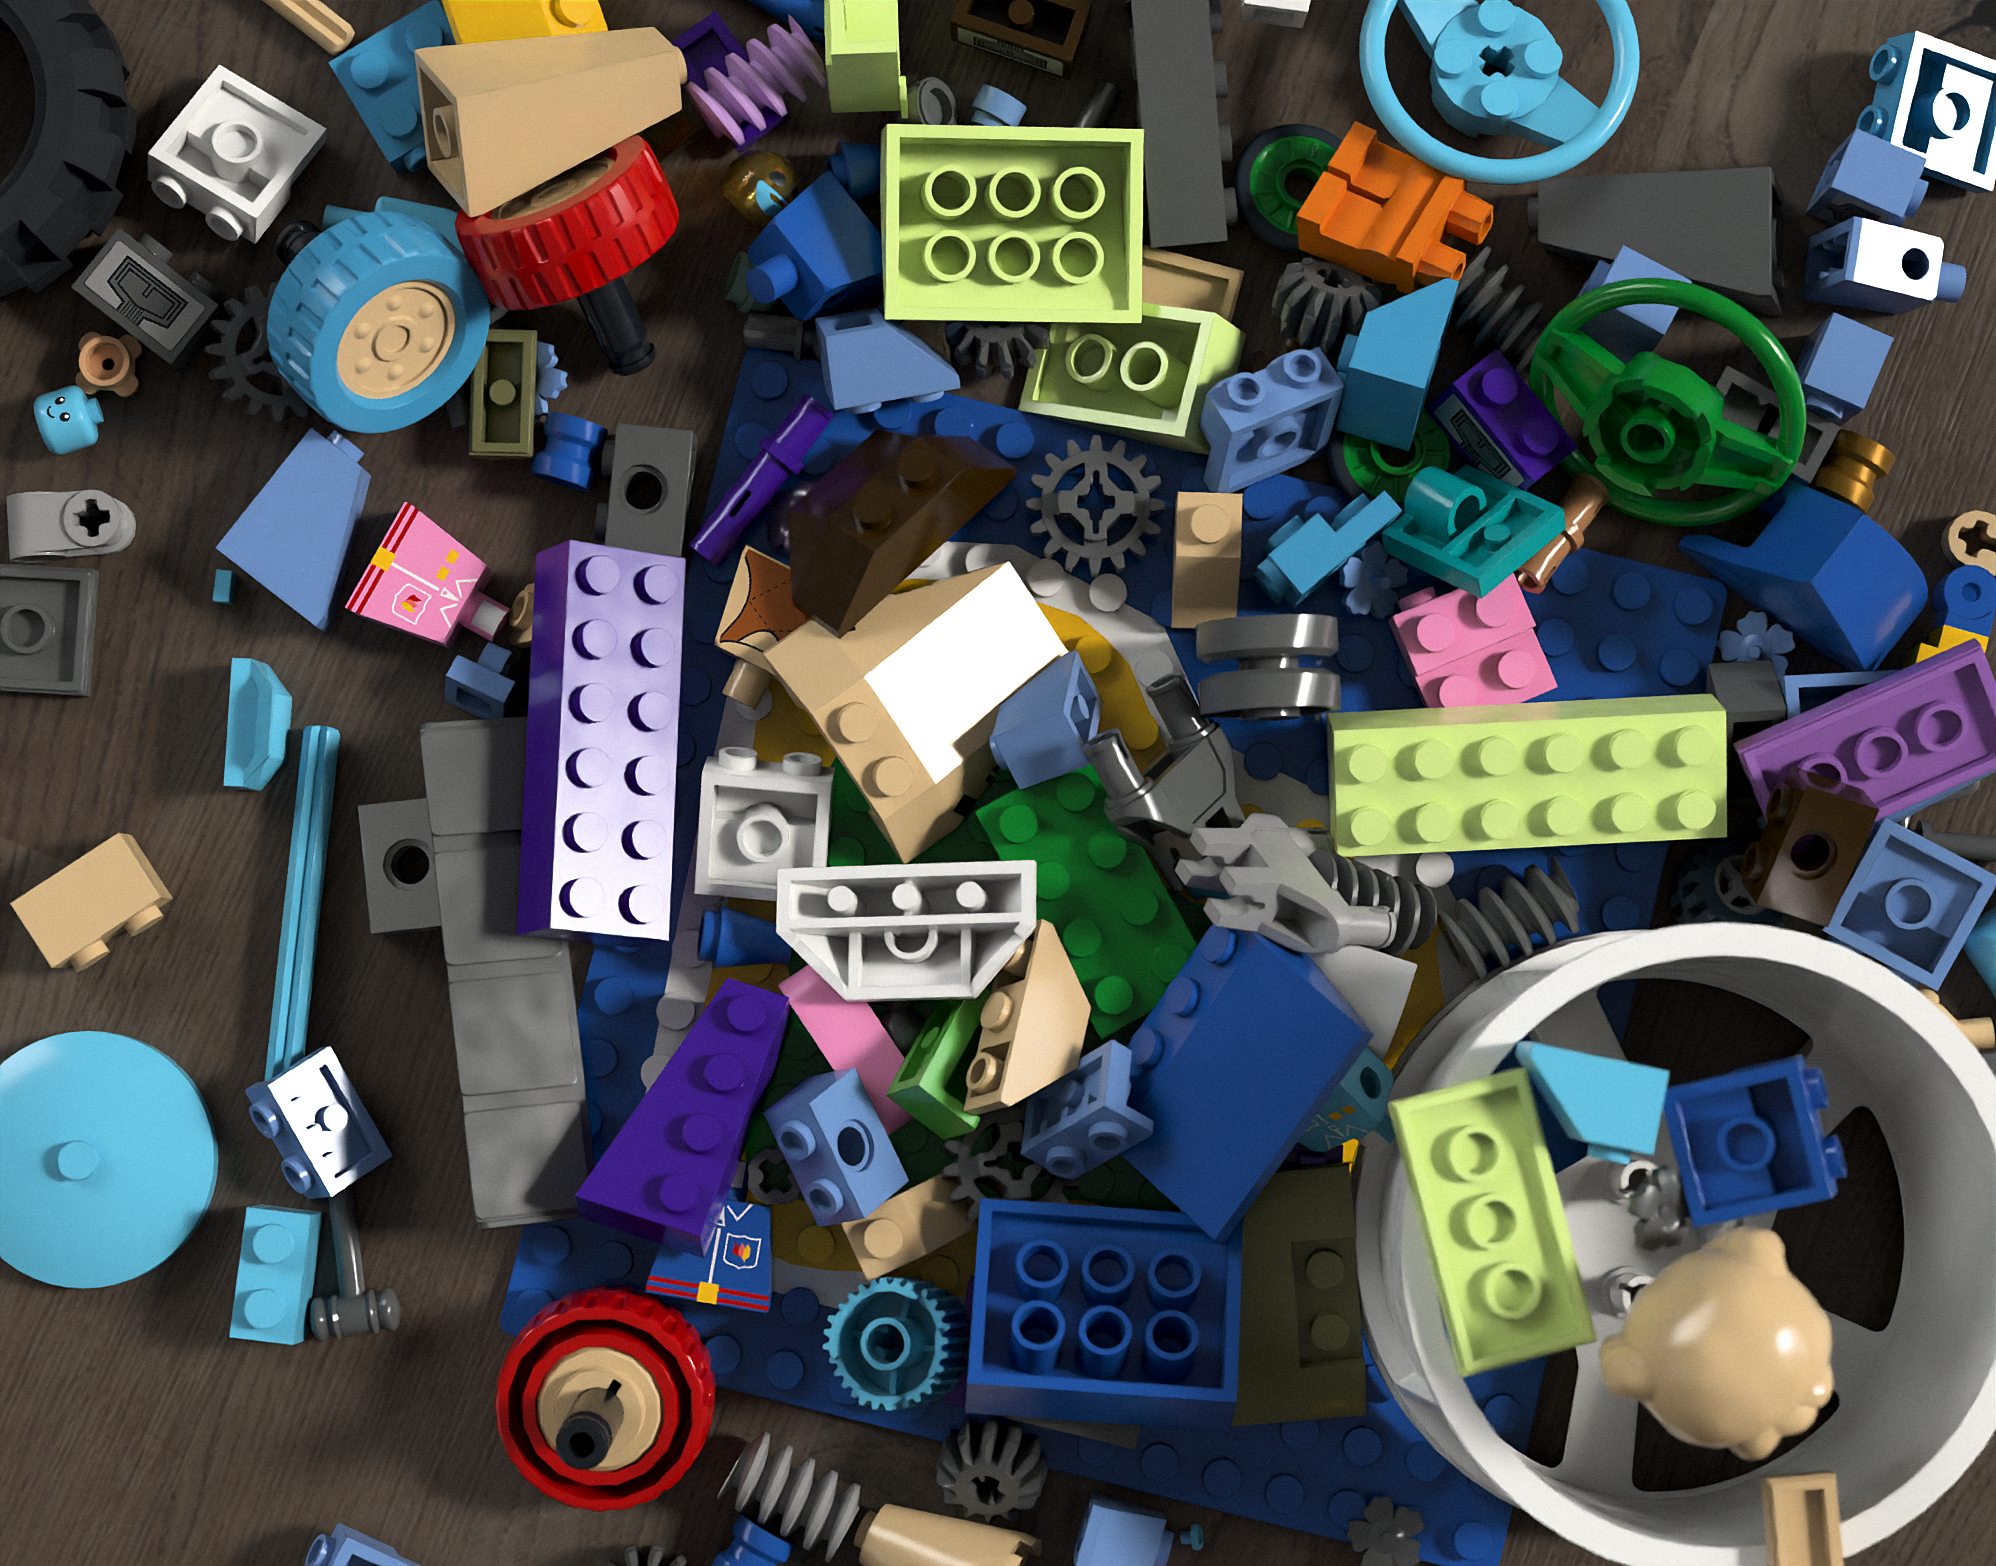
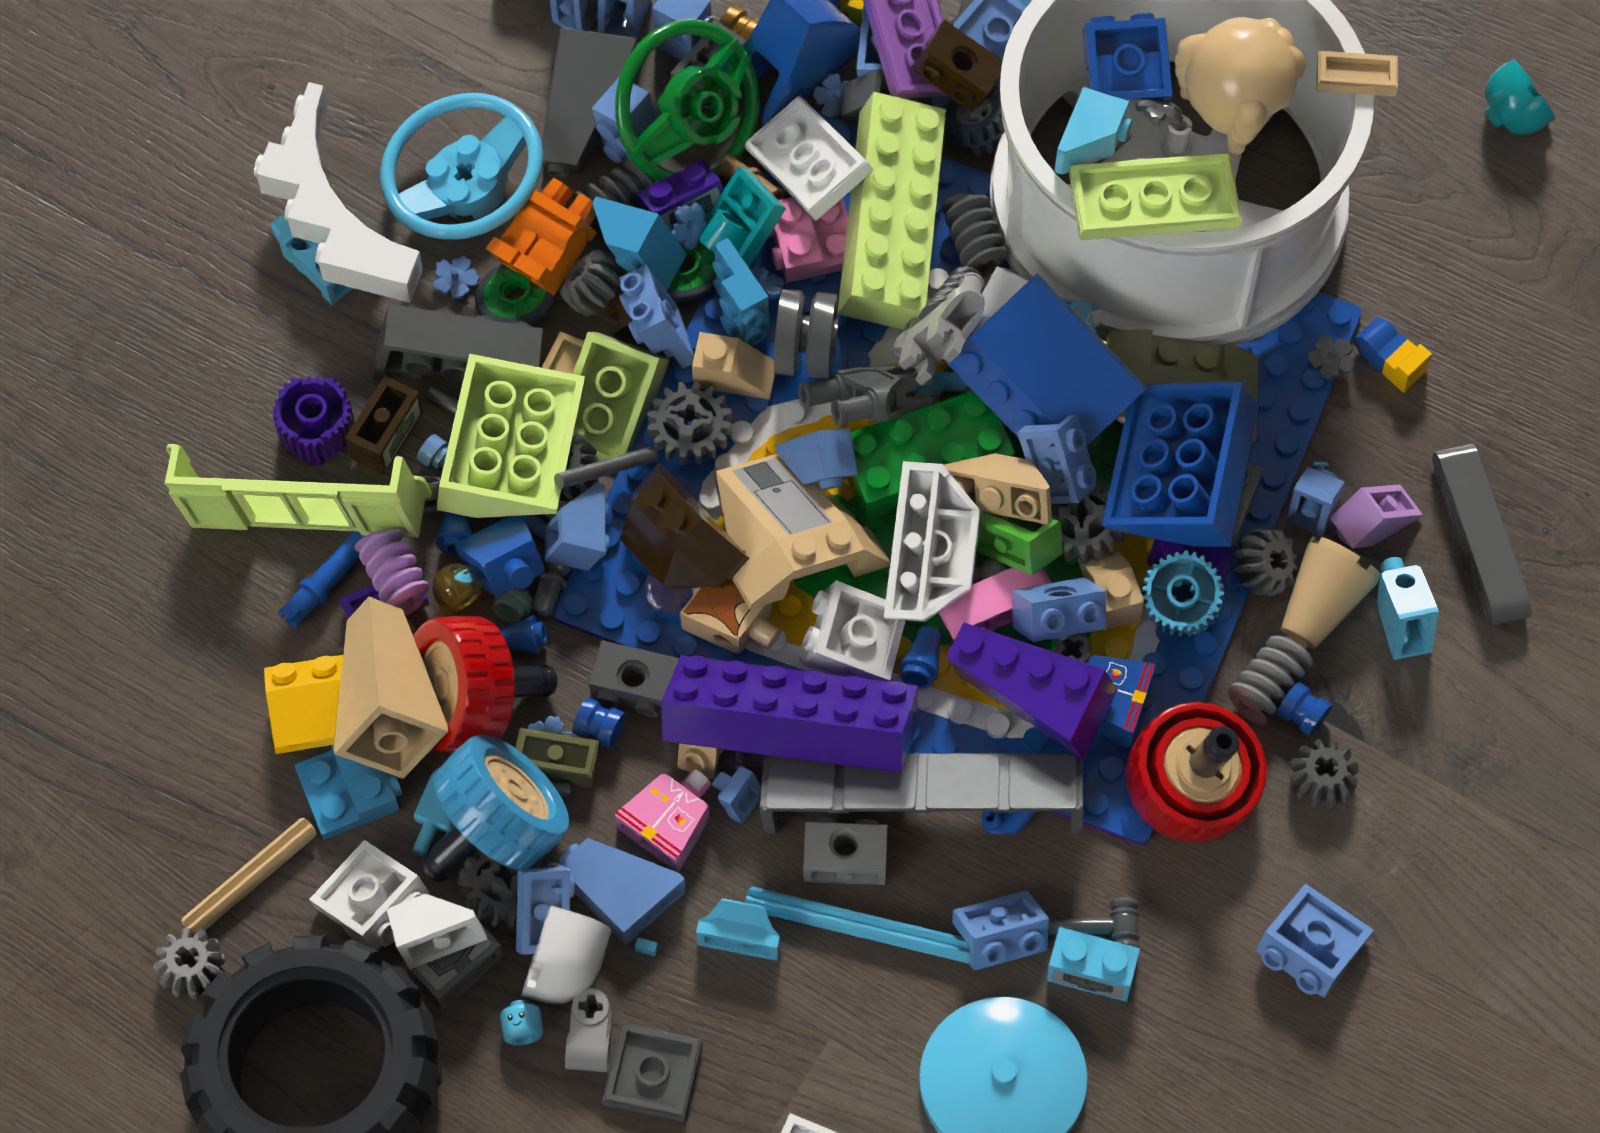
camera: 80 degrees left, 20 degrees down
(93, 903) = (838, 1047): tan brick -> none
(95, 351) = (486, 986): light nougat plate -> none
(158, 467) = (566, 957): none -> white brick
(163, 249) = (432, 928): none -> white slope
(228, 420) = (536, 893): none -> medium blue bracket
(698, 307) = (525, 635): none -> blue cone
(763, 477) = (626, 597): dark purple pin -> none
(985, 384) = (605, 467): none -> flat silver bar
(1320, 86) = (456, 278): none -> medium blue plant
(1451, 447) = (689, 225): none -> medium blue plant
(1601, 621) = (808, 157): none -> white tile

